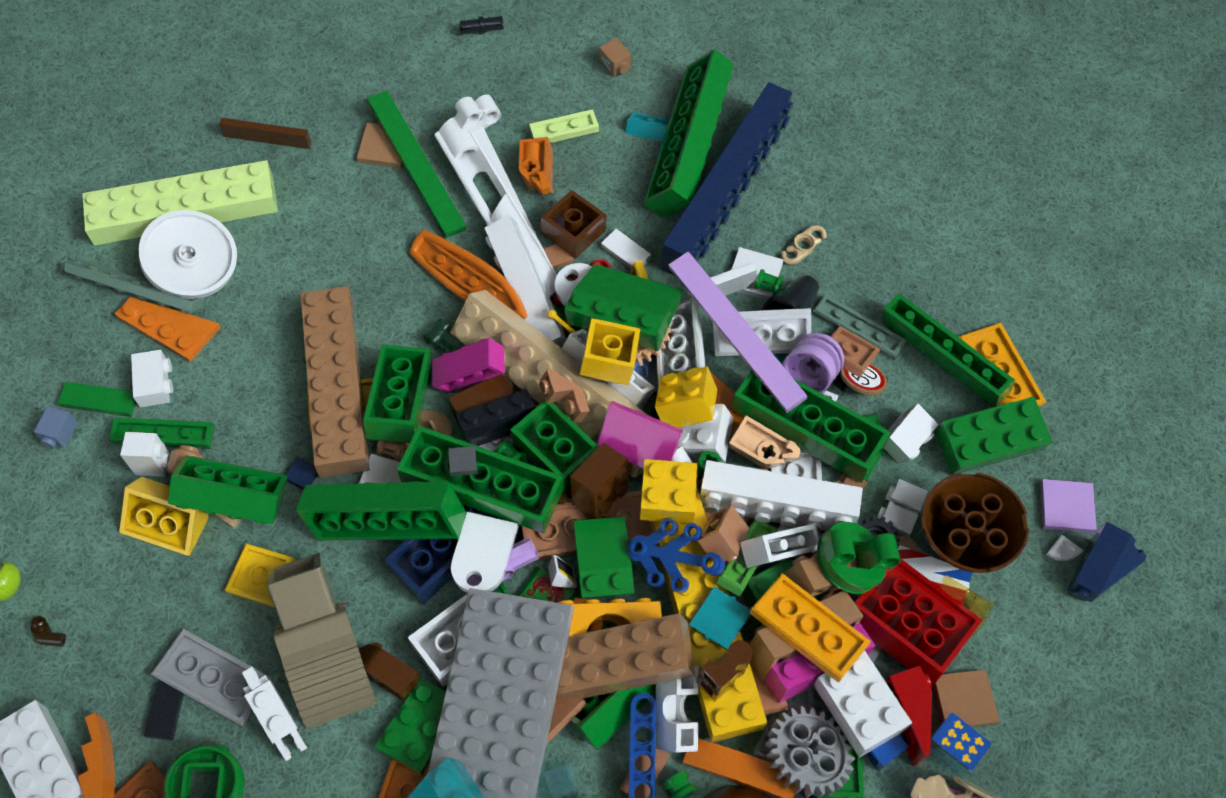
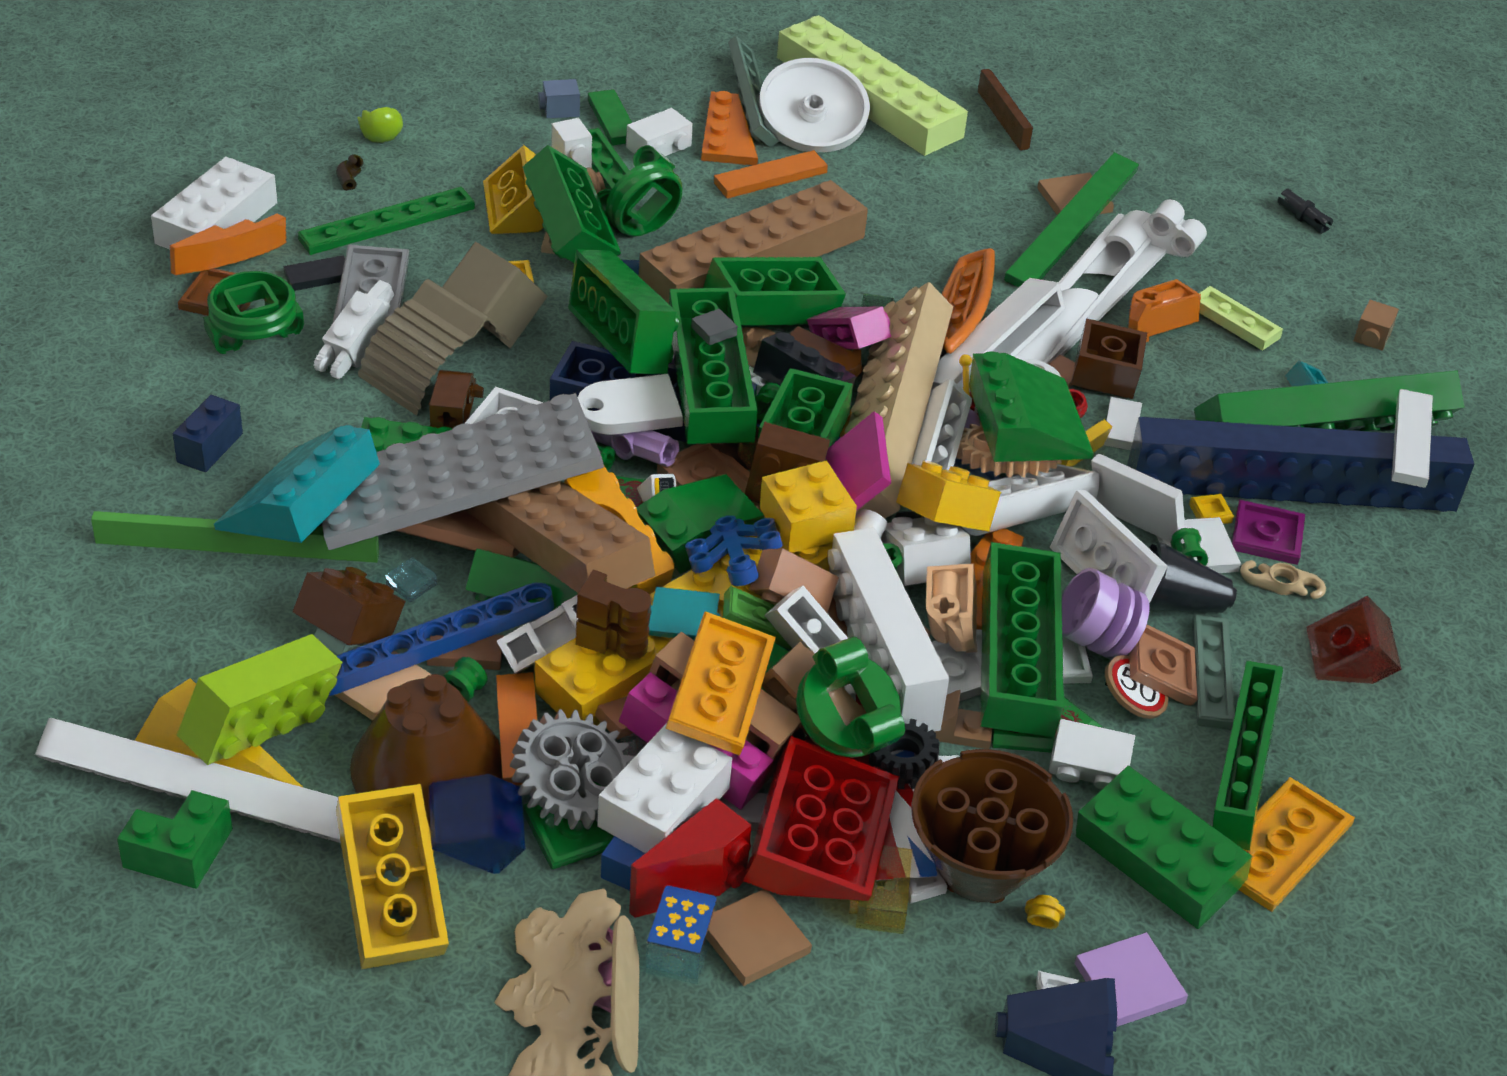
camera: 60 degrees right, 20 degrees down
(127, 631) = (385, 220): none -> green tile
(240, 324) = (770, 174): none -> orange tile
(242, 417) = (650, 171): none -> green piece
(558, 388) = (865, 386): nougat slope -> none
(610, 351) = (946, 401): yellow brick -> none
(726, 247) = (1211, 507): none -> yellow tile
(738, 332) = (1073, 513): lavender tile -> none
(759, 110) = (1412, 438): none -> white tile
(760, 227) = (1268, 532): none -> magenta tile
(877, 243) = (1354, 644): none -> clear red slope

